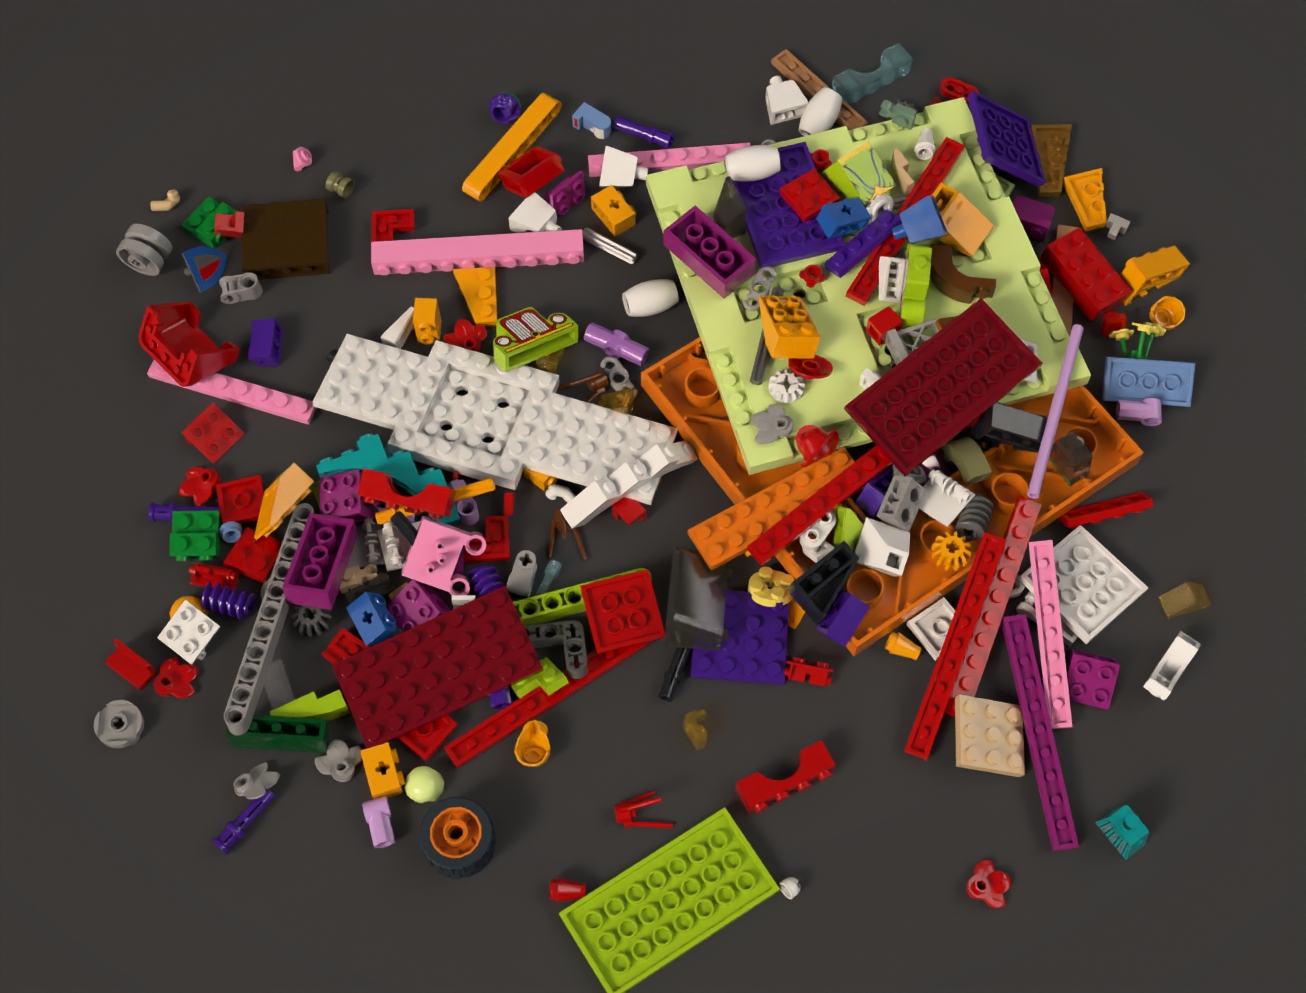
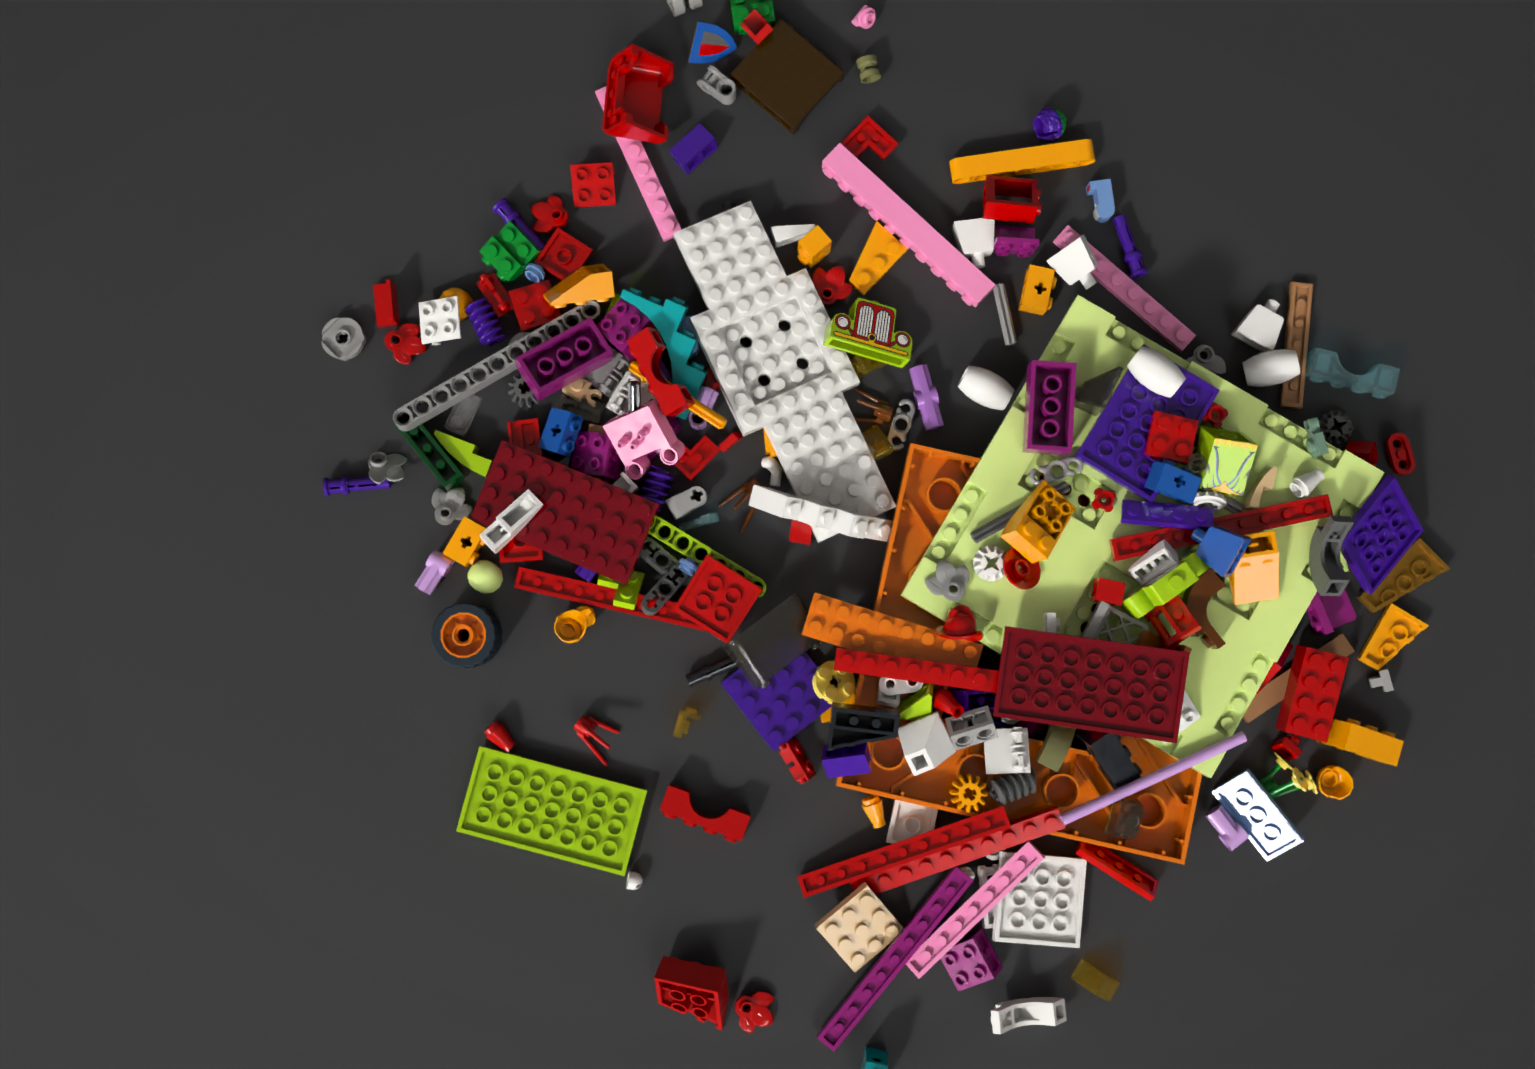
camera: 50 degrees right, 20 degrees up
(403, 711) = (511, 521): none -> white slope
(574, 614) = (688, 566): none -> medium blue plate
(845, 193) = (1195, 464): none -> clear smoke hinge
(865, 505) = (946, 702): none -> red cone
(928, 916) = (693, 989): none -> red wedge
(946, 292) = (1179, 618): none -> red plate
(988, 172) = (1325, 556): none -> dark grey arch

